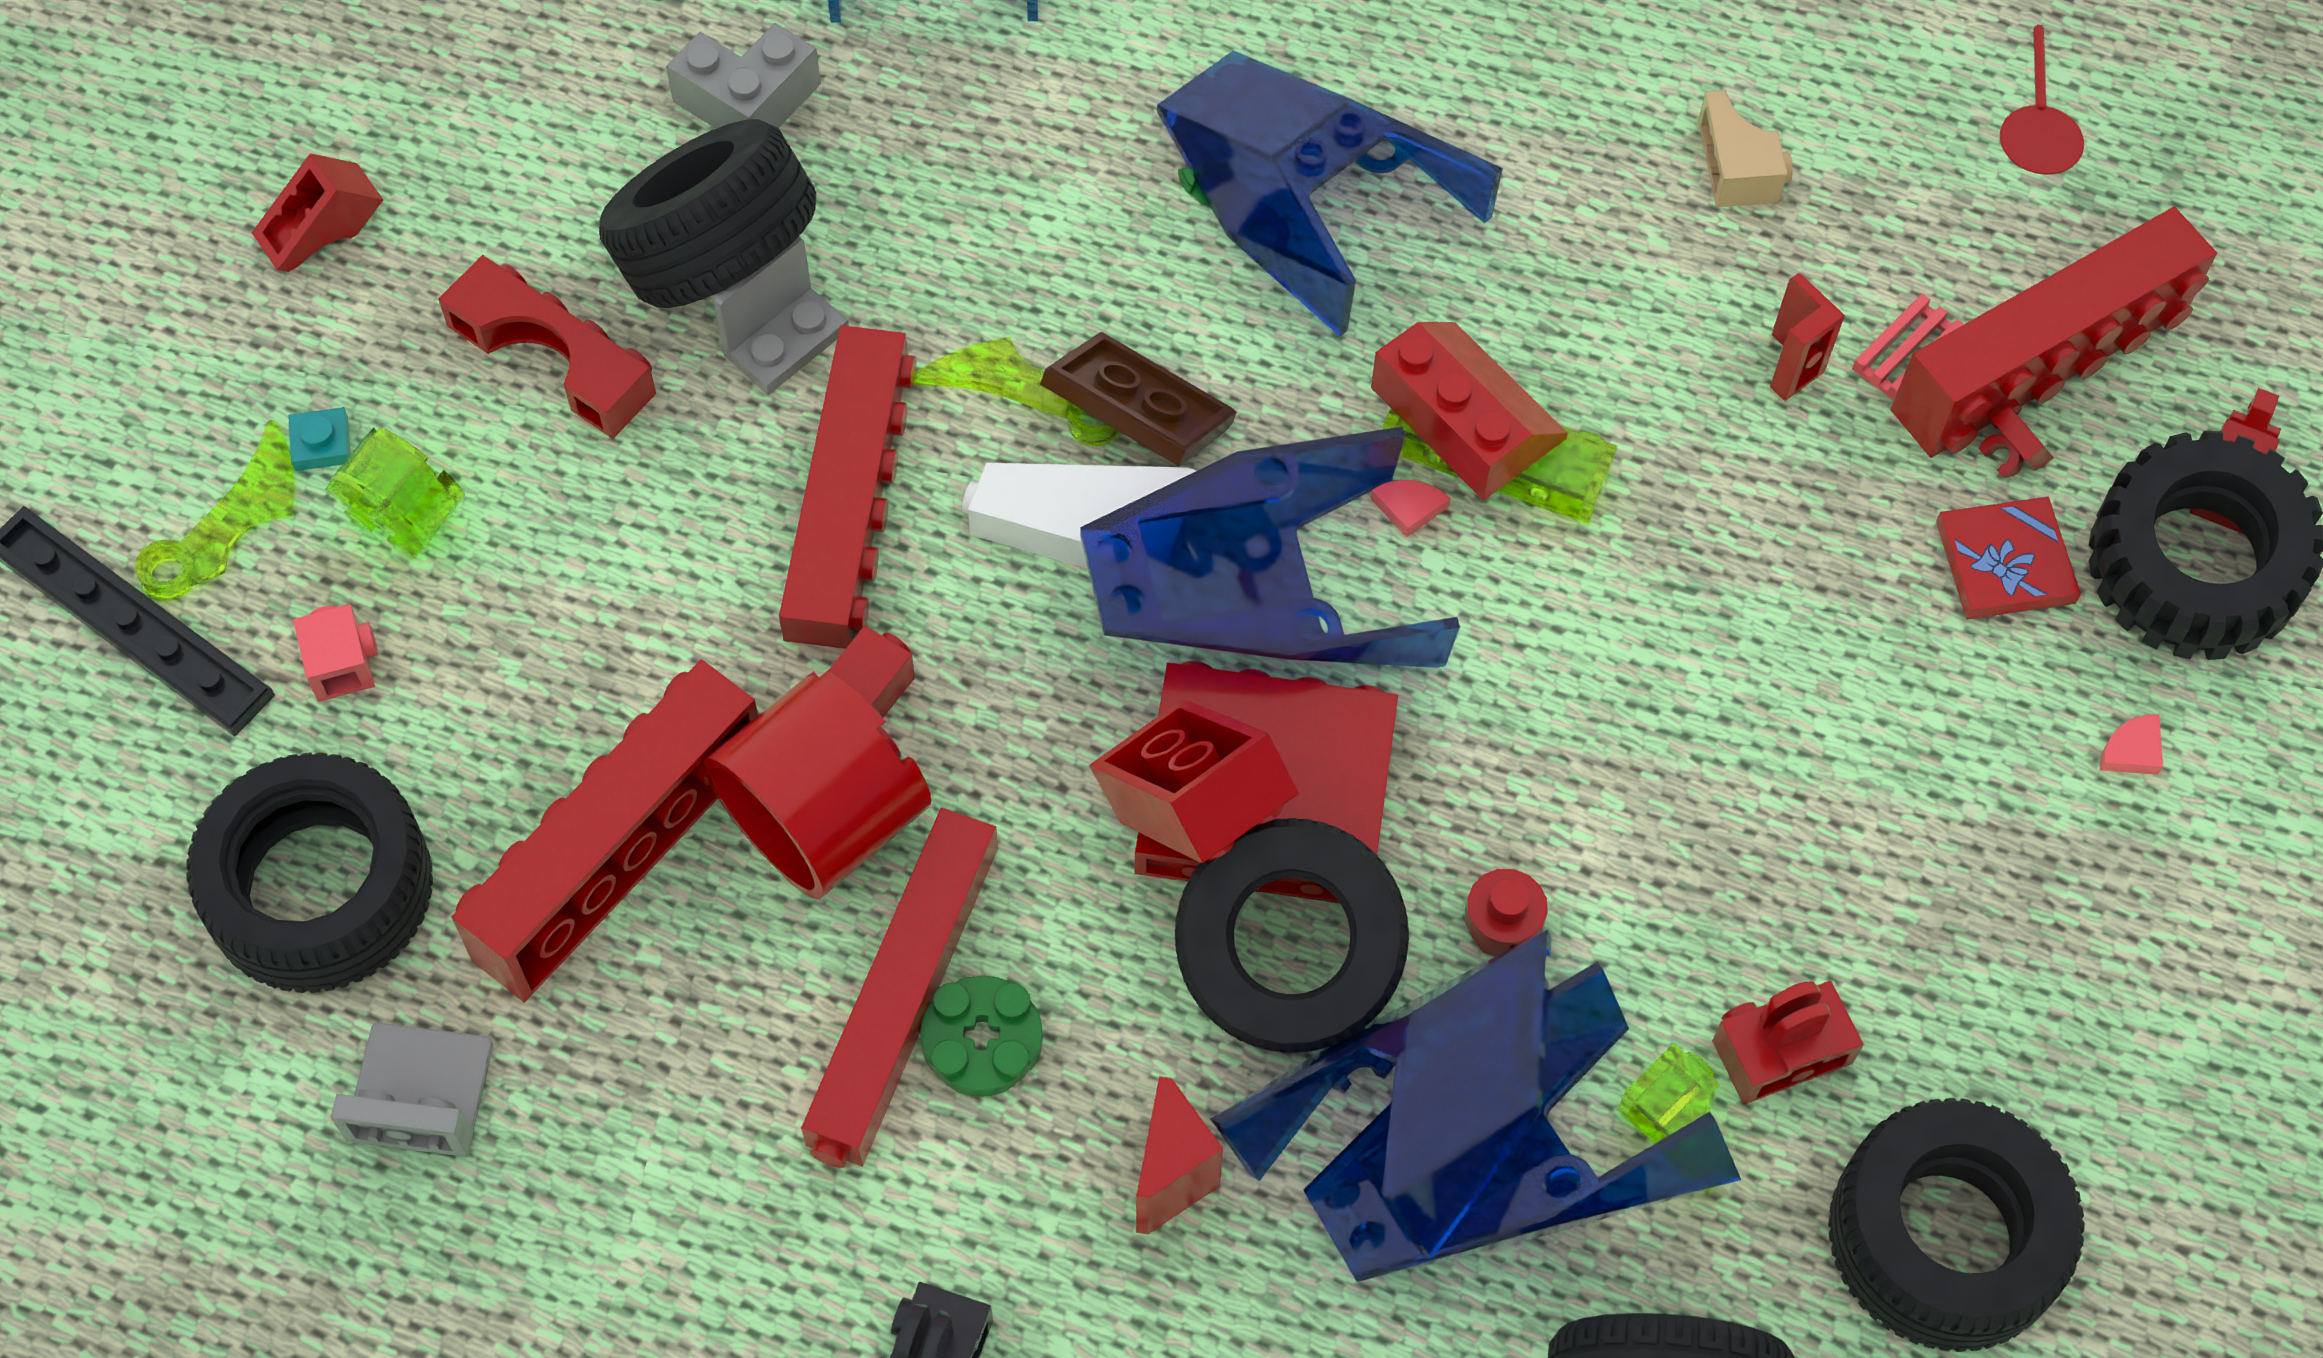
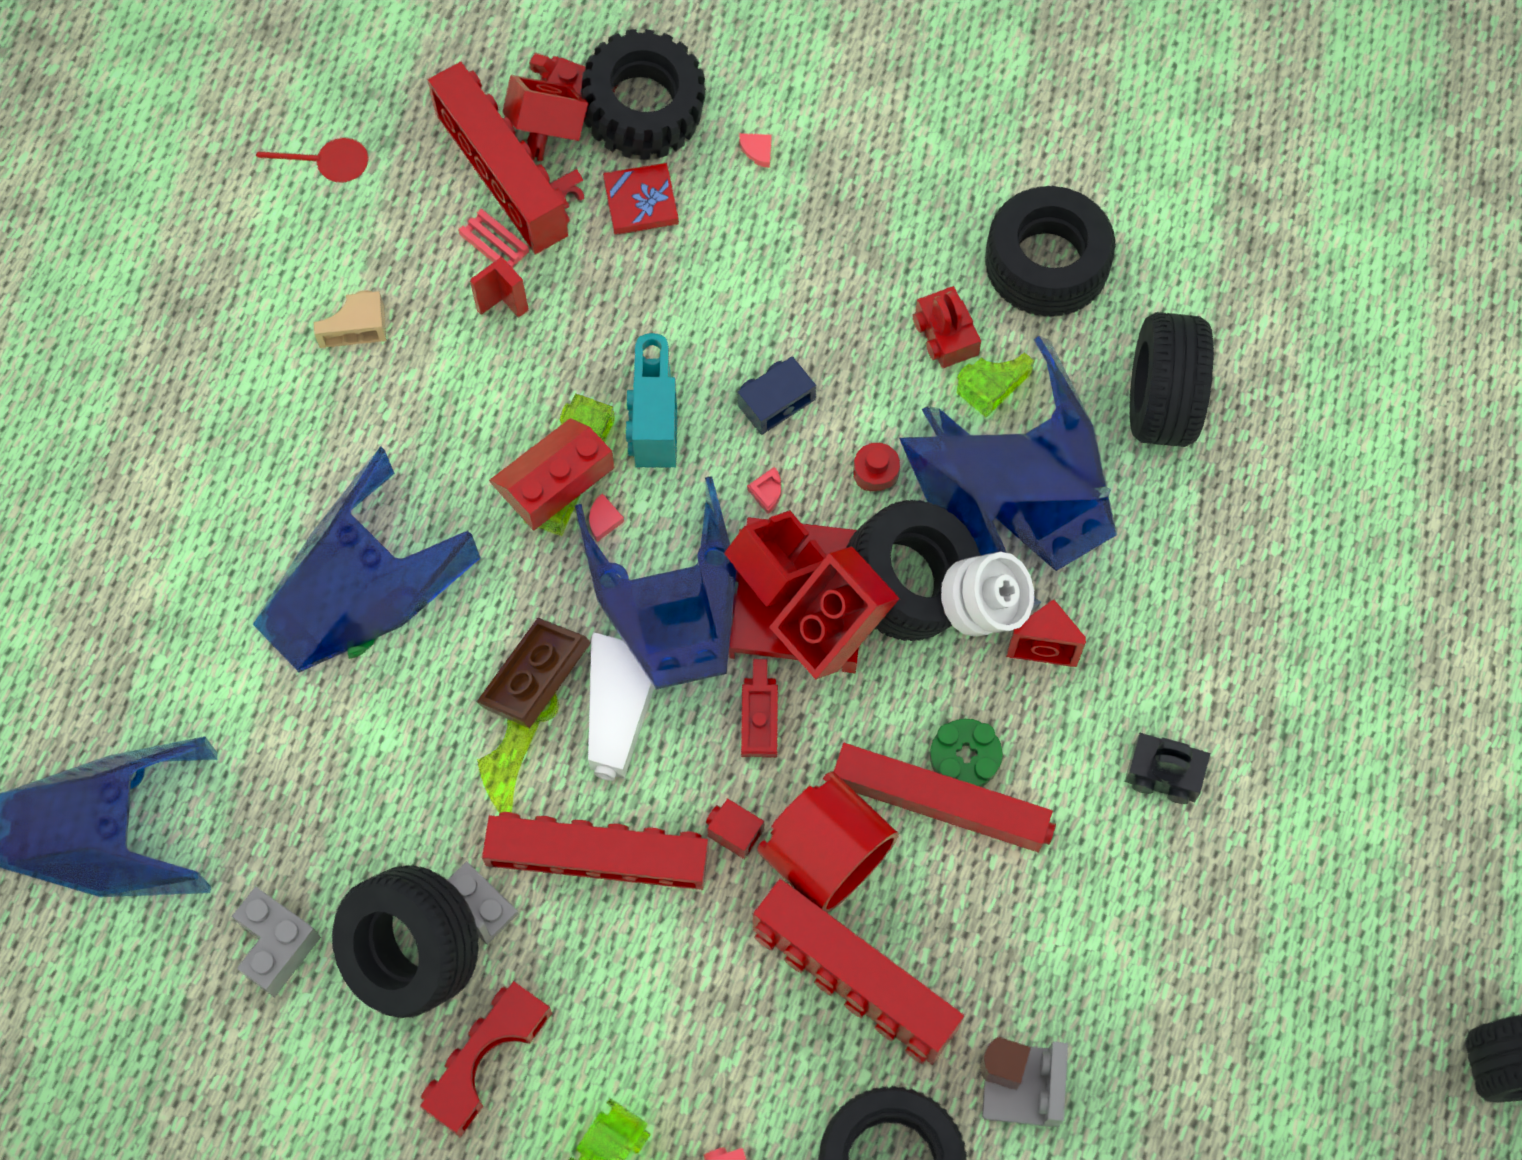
camera: 90 degrees left, 5 degrees up
(442, 1044) = (1004, 1062): none -> reddish brown piece
(1063, 718) = (759, 713): none -> red hinge
(1228, 1033) = (987, 594): none -> white wheel
(1294, 702) = (764, 553): none -> red piece
(1464, 745) = (766, 489): none -> coral tile
(1601, 556) = (652, 407): none -> teal brick
(1637, 756) = (776, 394): none -> dark blue brick
(2145, 386) = (543, 111): none -> red brick

